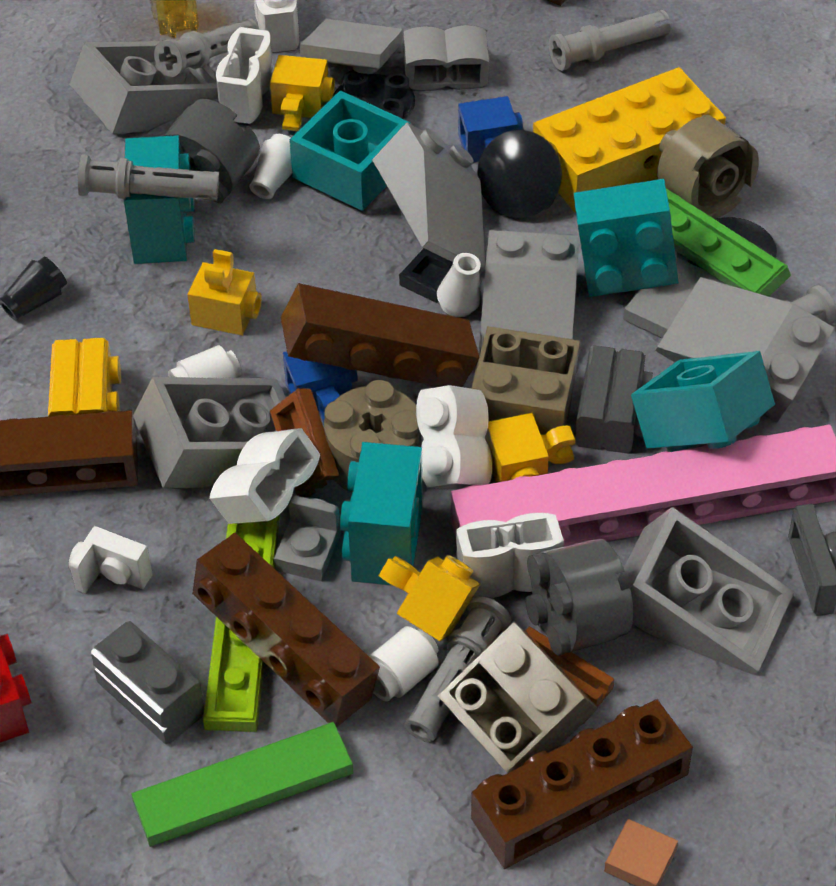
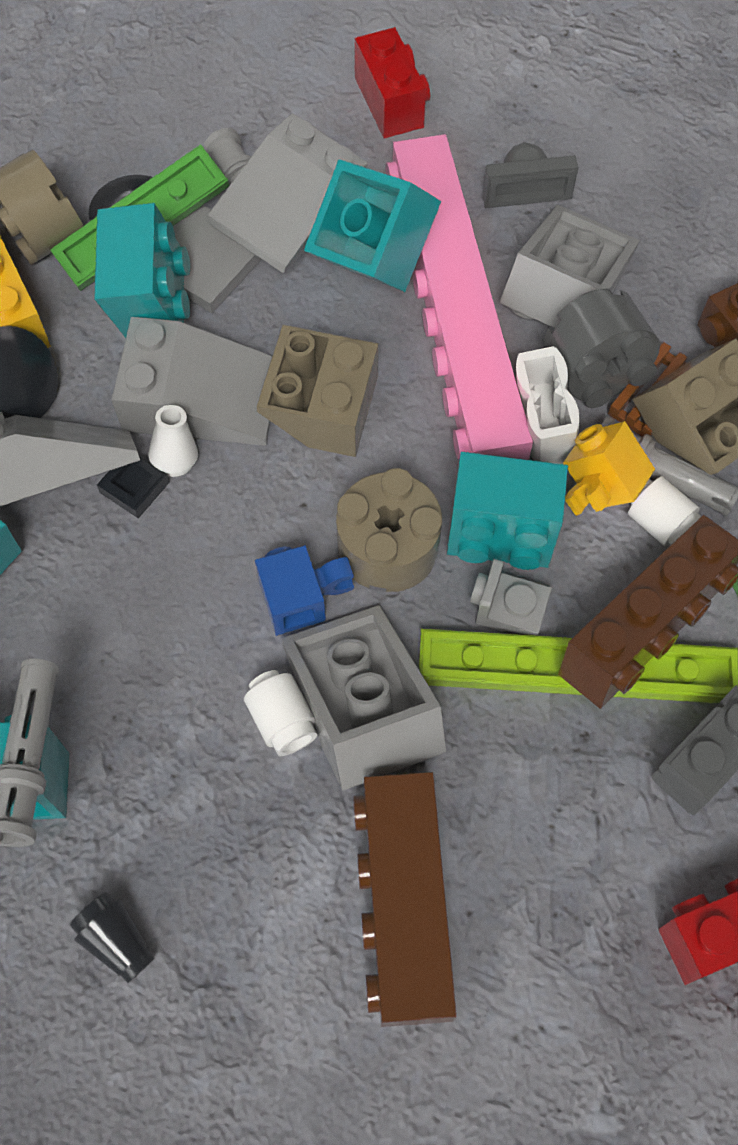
camera: 90 degrees left, 15 degrees up
(83, 377) = (293, 854): yellow brick -> none
(113, 556) = (553, 795): white bracket -> none
(223, 296) = (159, 694): yellow brick -> none
(265, 476) = (460, 628): white brick -> none
(301, 411) = (399, 588): dark orange tile -> none
(378, 337) = (278, 510): reddish brown brick -> none
(454, 437) = (407, 443): white brick -> none
(521, 449) = (405, 399): yellow brick -> none
(606, 405) = (337, 309): dark grey brick -> none

